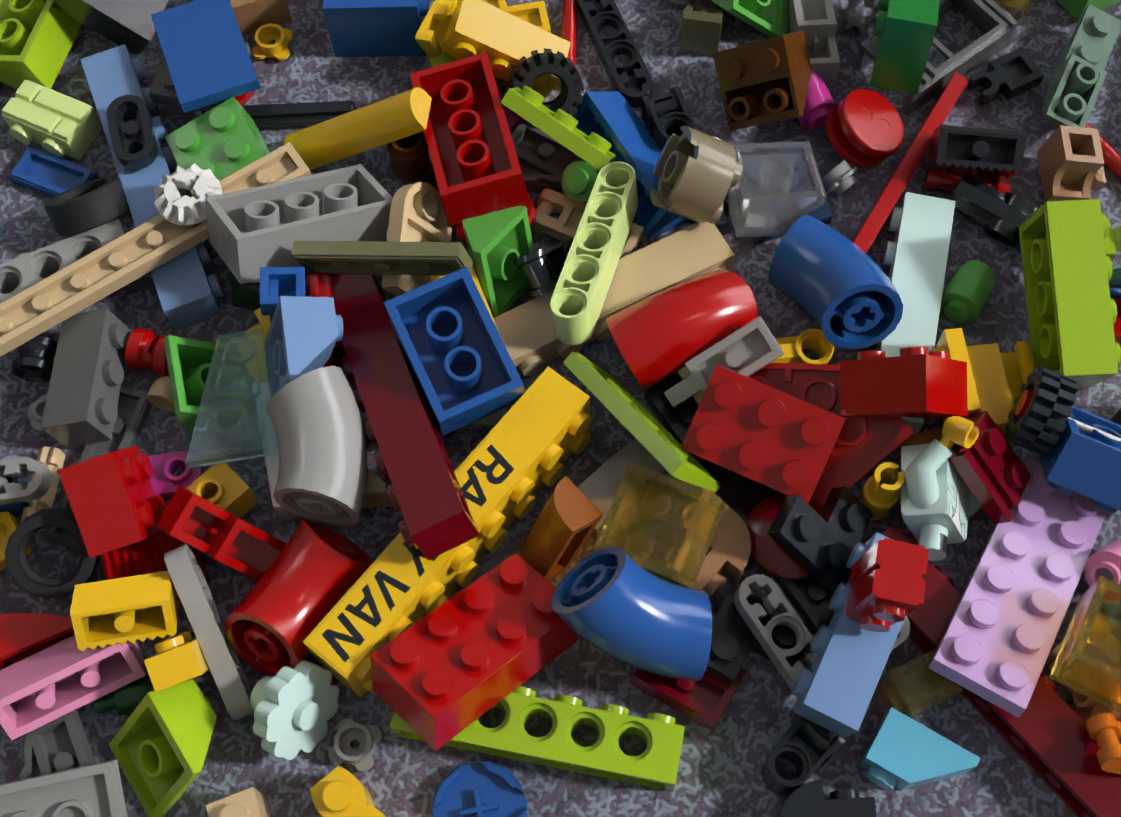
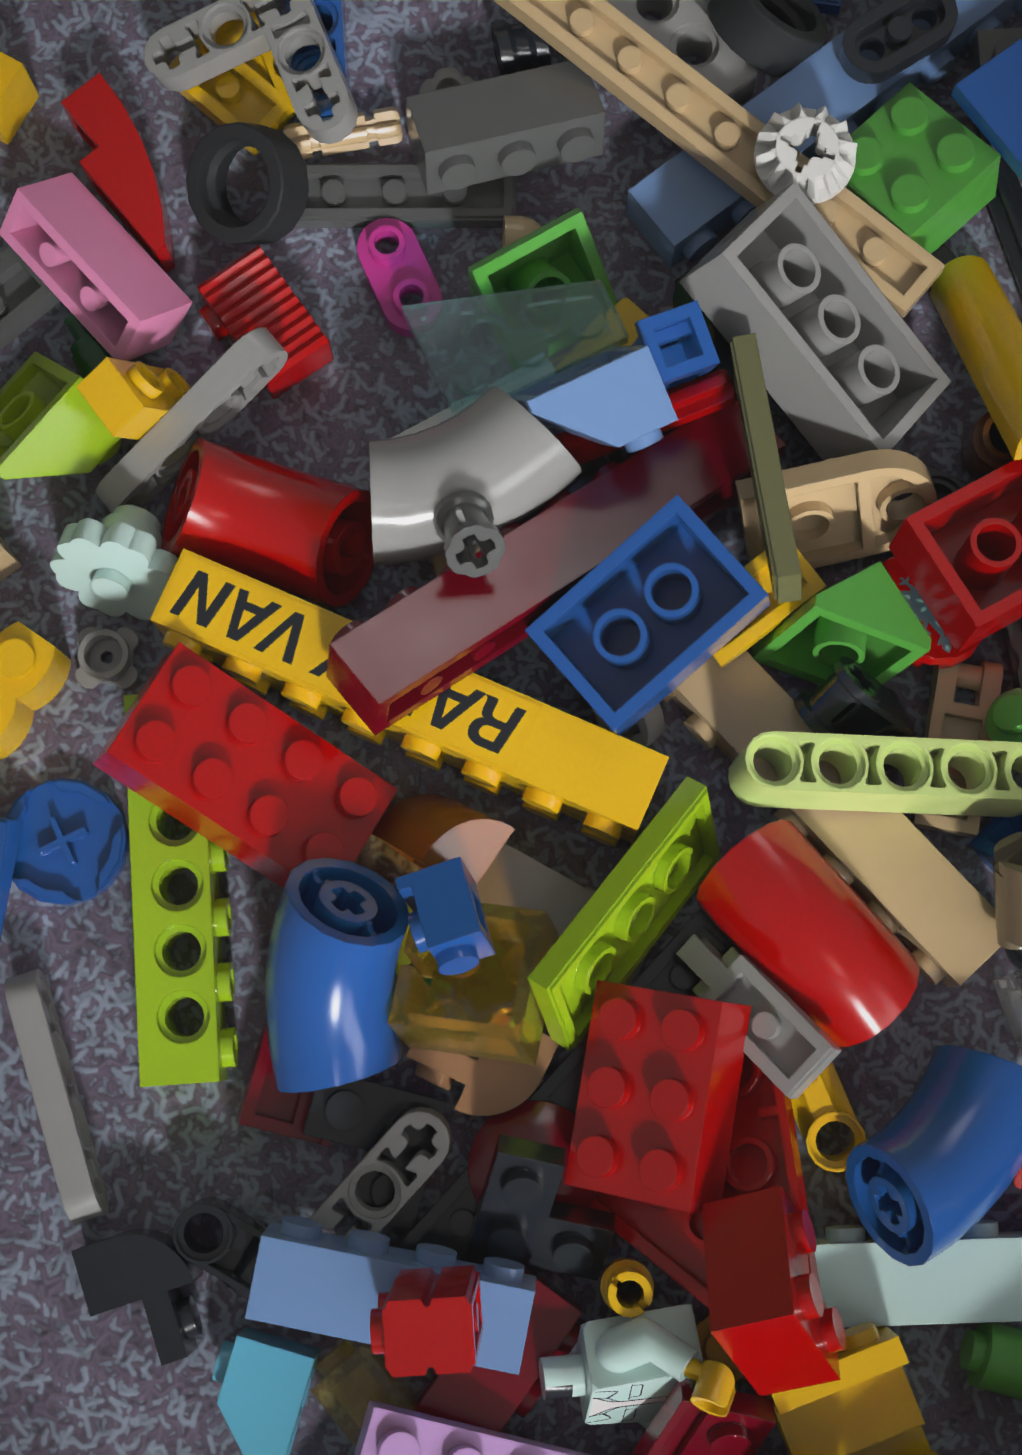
camera: 75 degrees right, 15 degrees up
(113, 499) = (325, 233): red brick -> none
(124, 610) = (175, 305): yellow brick -> none
(146, 351) = (576, 185): red wheel -> none
(219, 533) = (320, 390): red slope -> none
(225, 489) = (381, 366): yellow brick -> none
(364, 435) = (461, 537): none -> dark grey bush
(615, 518) = (447, 915): none -> blue brick

